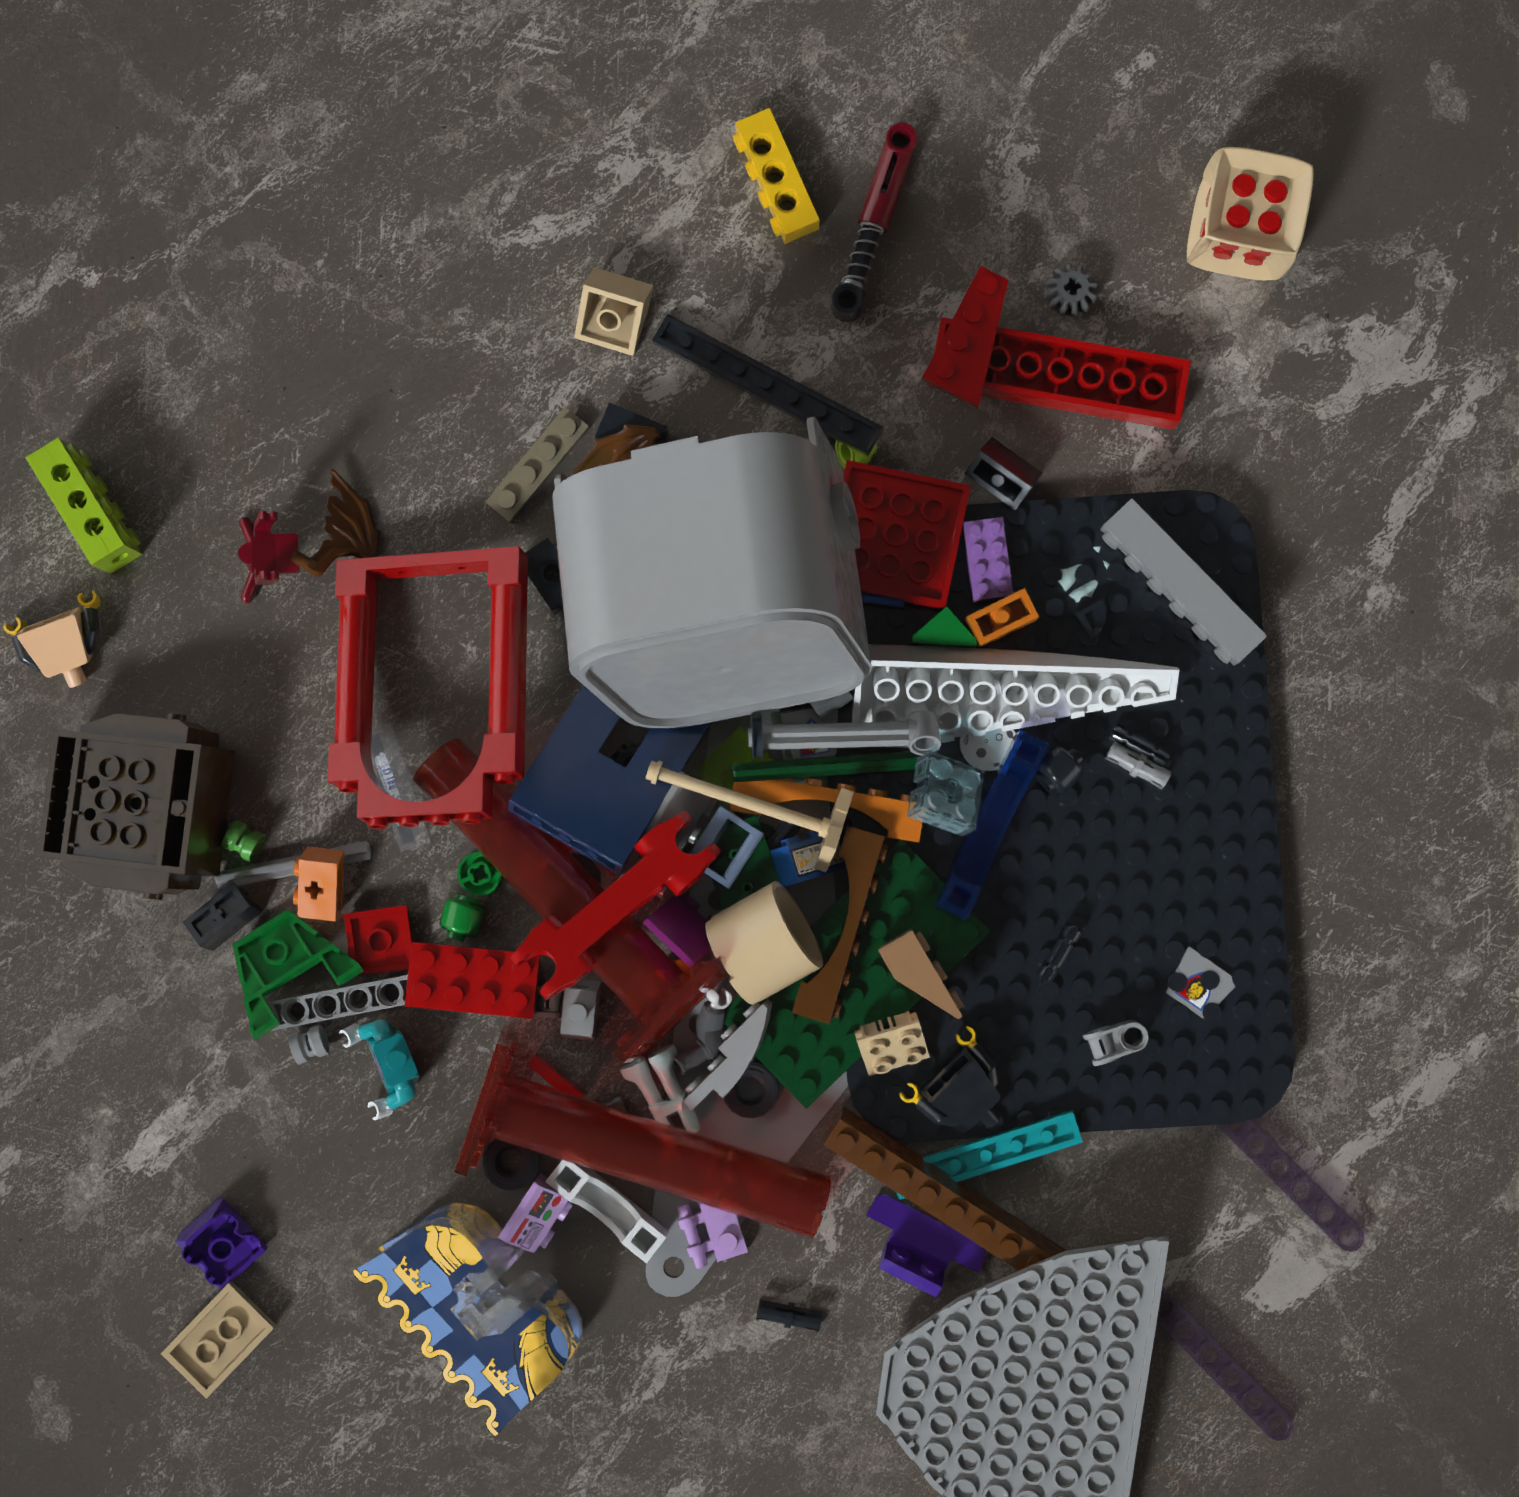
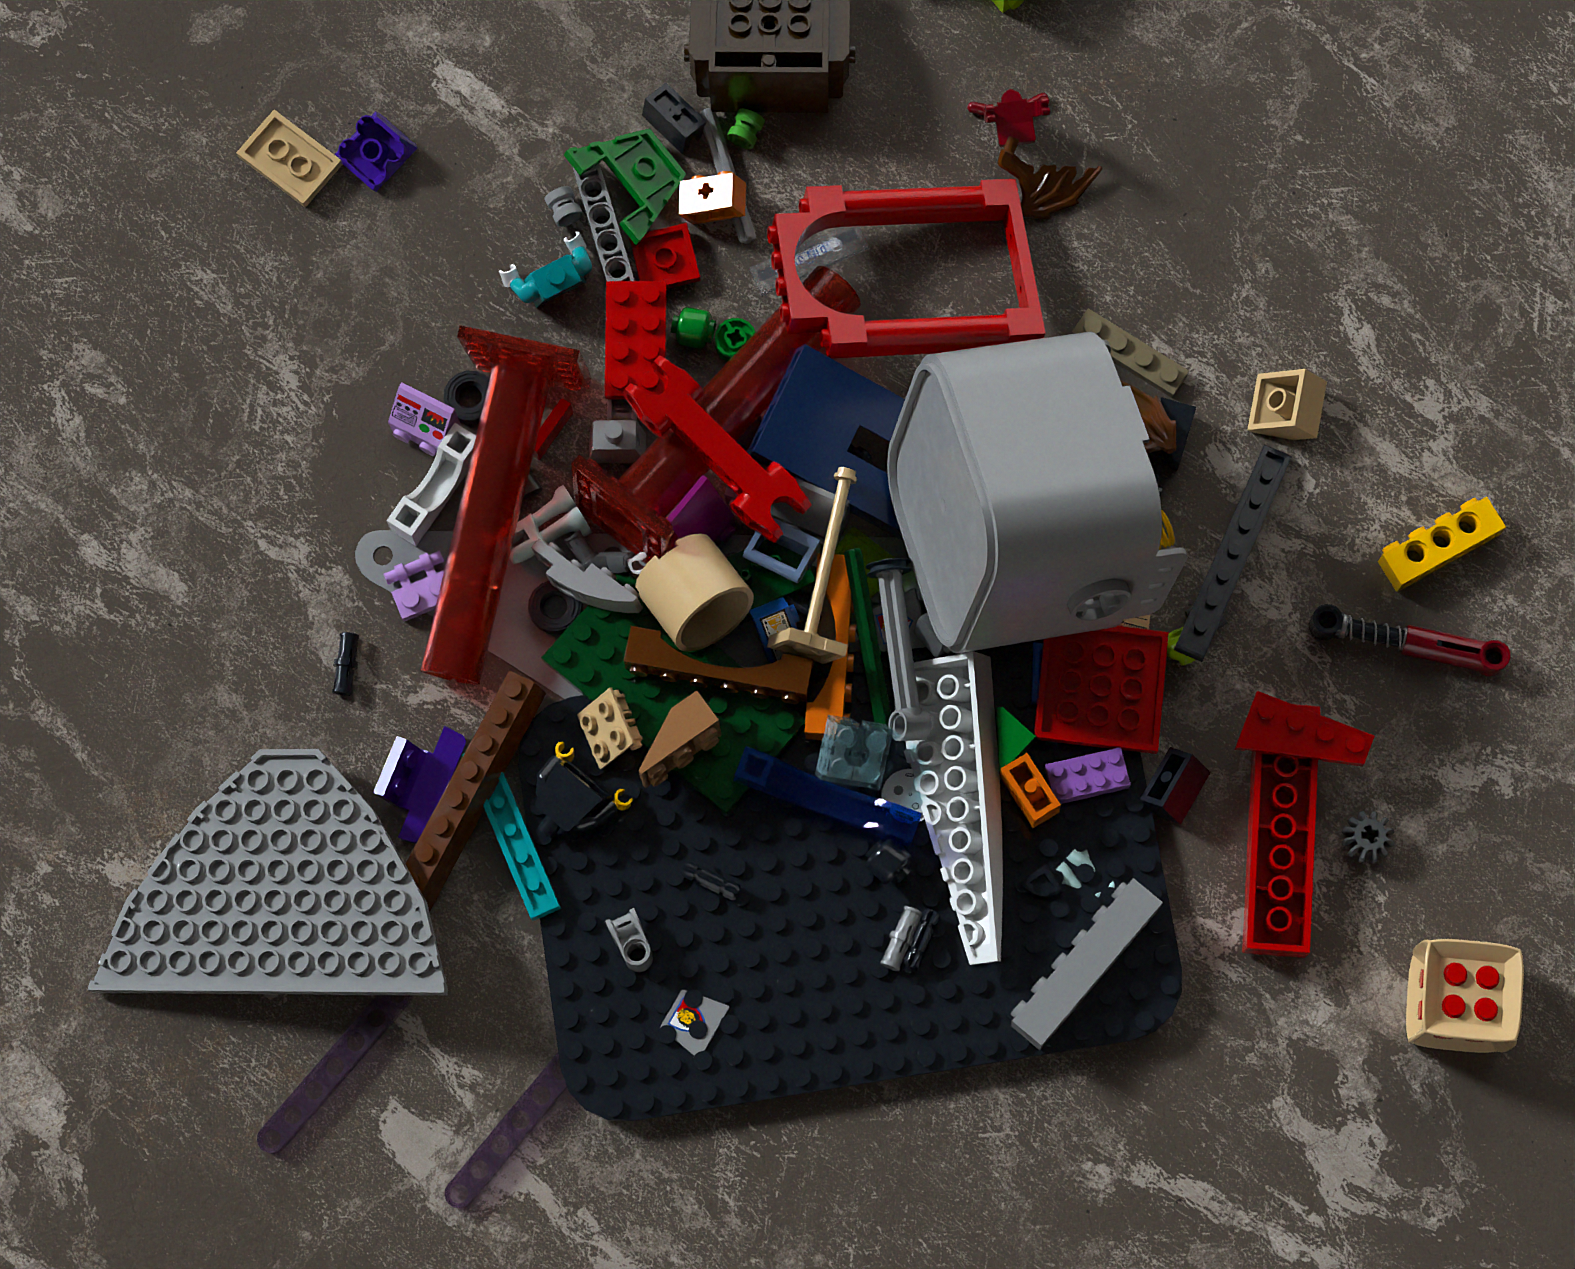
camera: 85 degrees right, 10 degrees down
(492, 1336) = (310, 388): animal -> none

